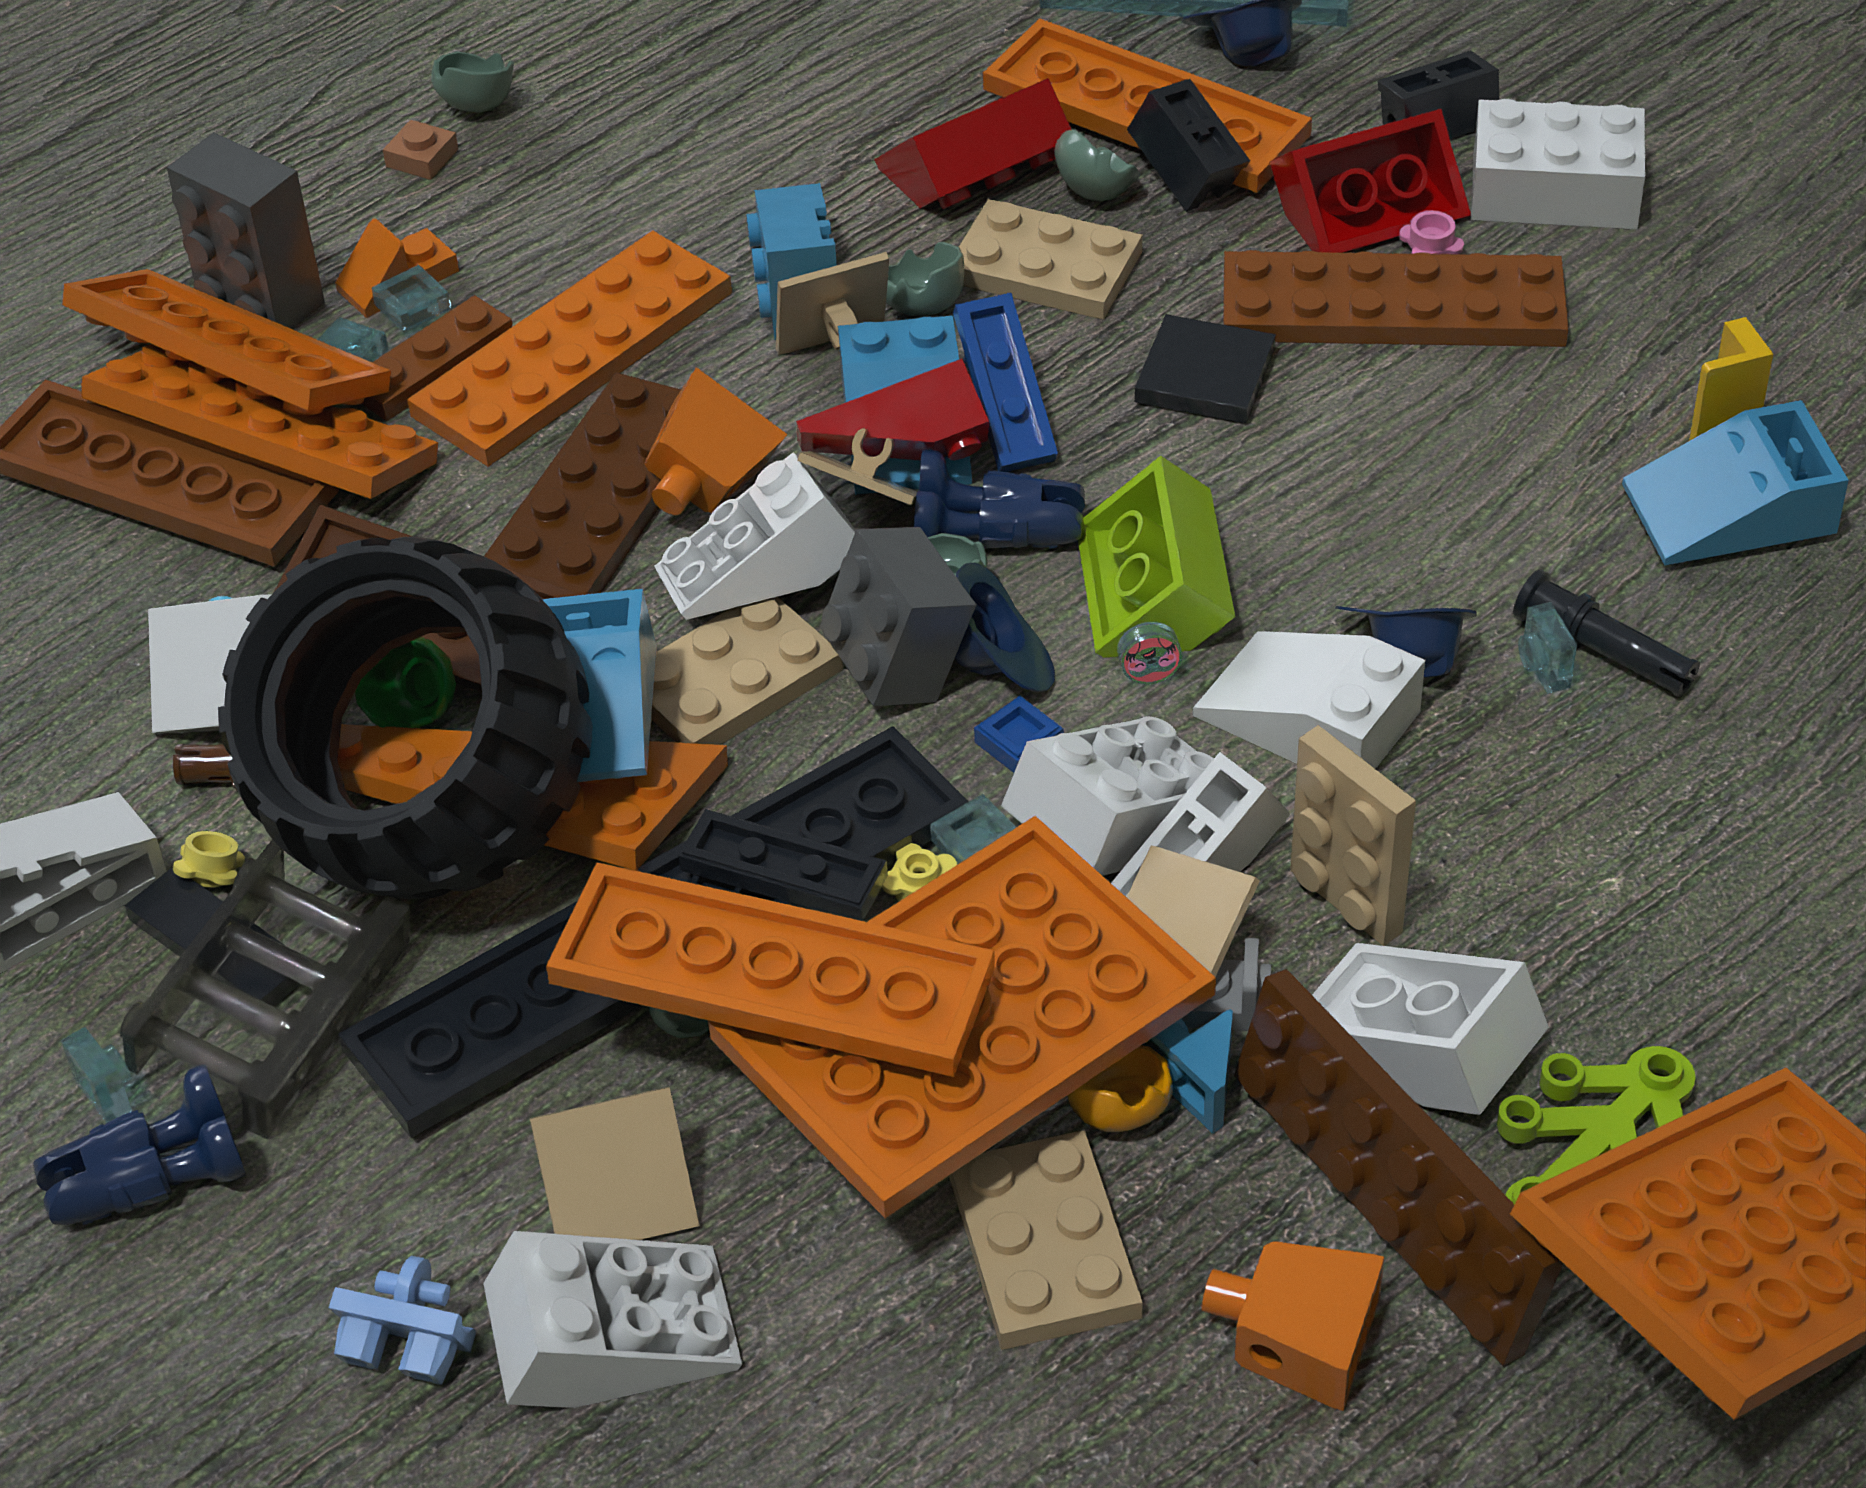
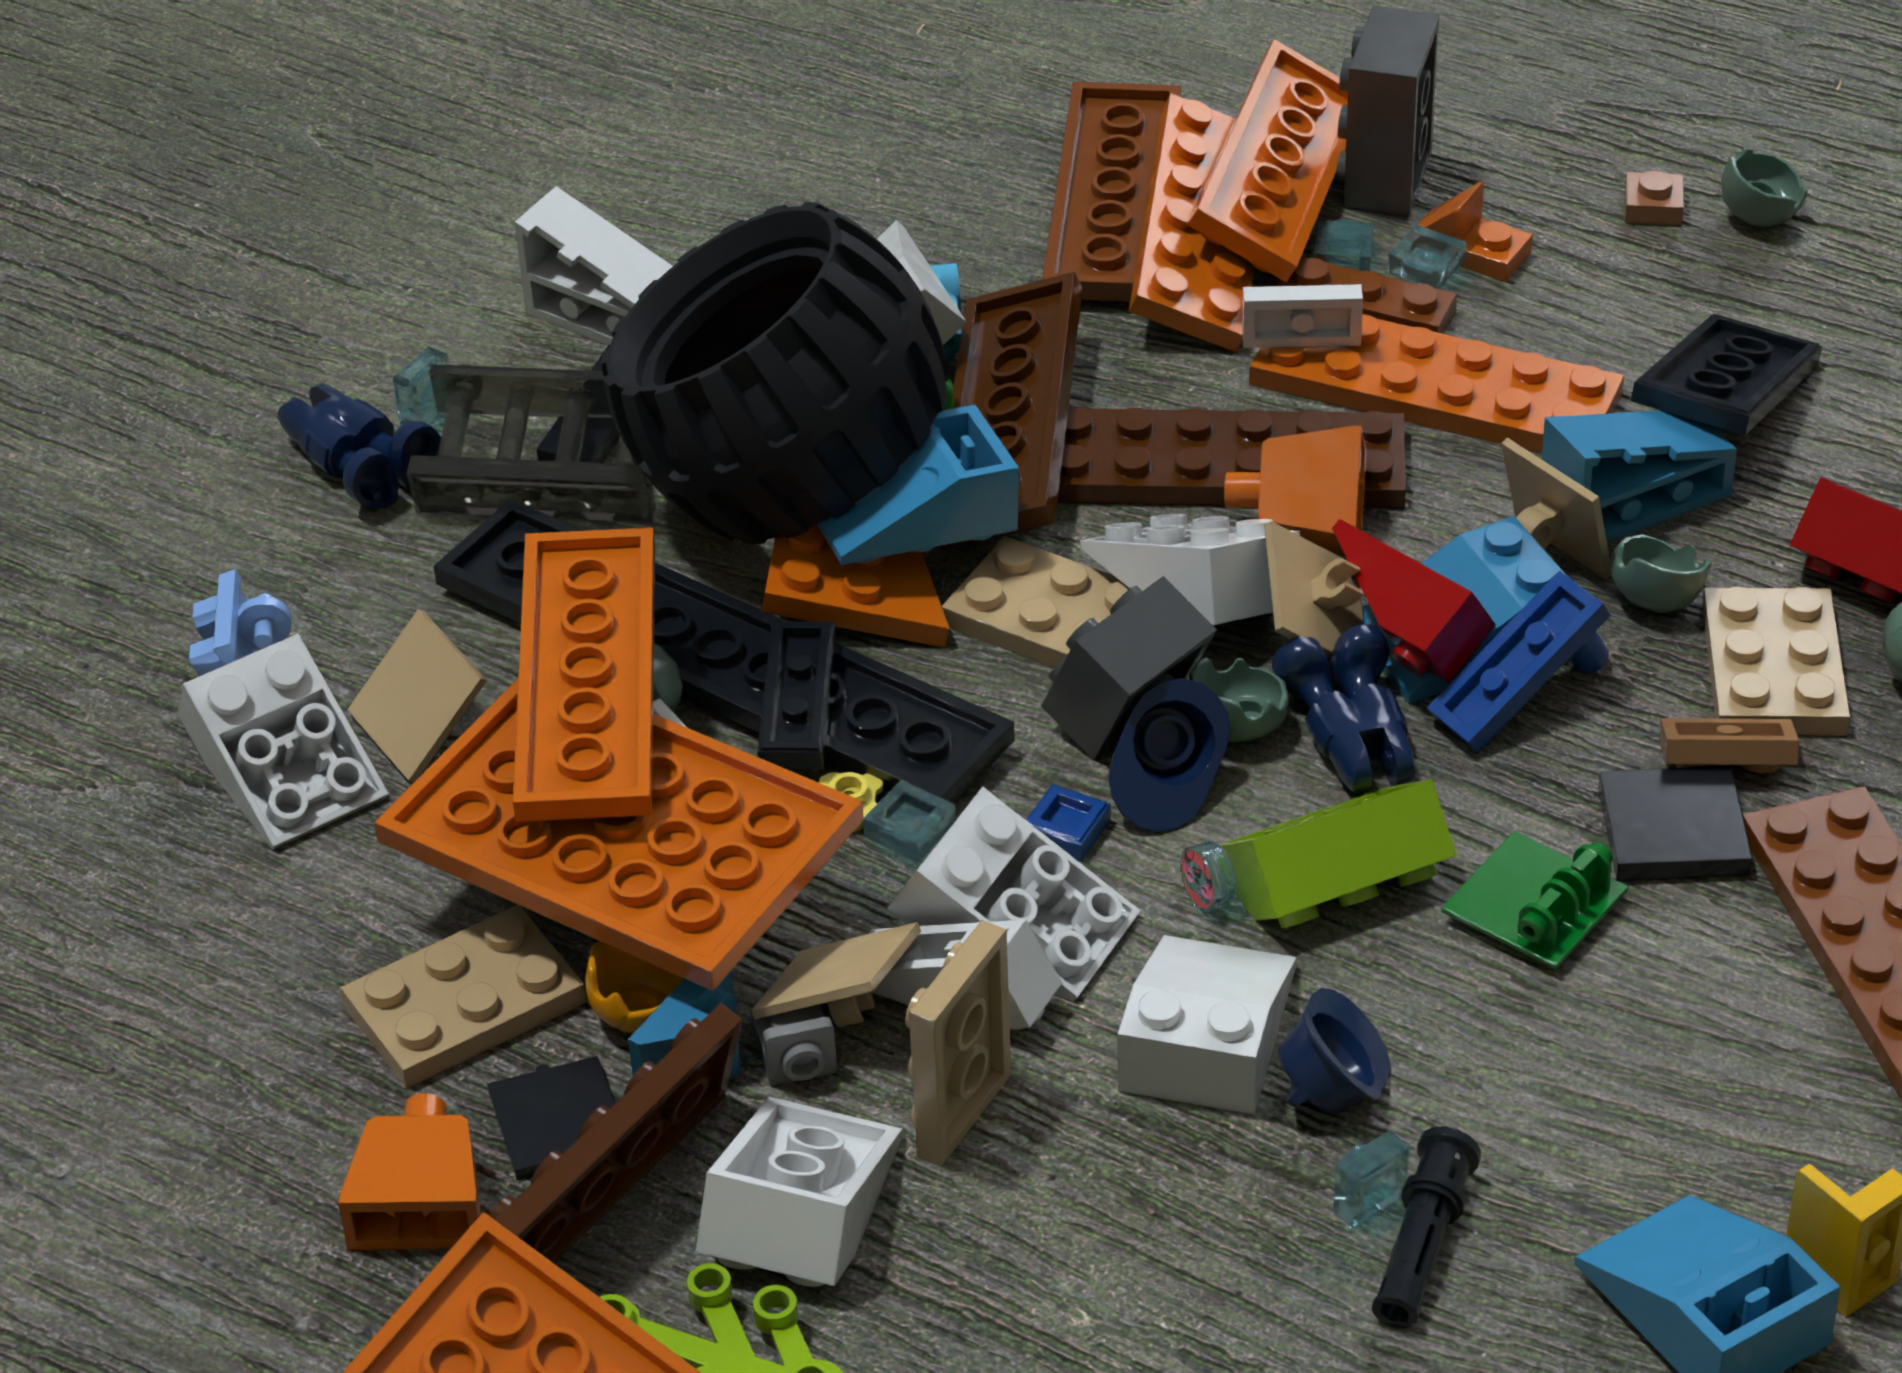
camera: 70 degrees right, 5 degrees down
(477, 380) = (1302, 316): none -> white plate
(712, 164) = (1727, 374): none -> black tile
(1140, 305) = (1751, 743): none -> medium nougat plate
(1235, 1198) = (547, 1109): none -> black piece
(1259, 466) = (1538, 897): none -> green hinge

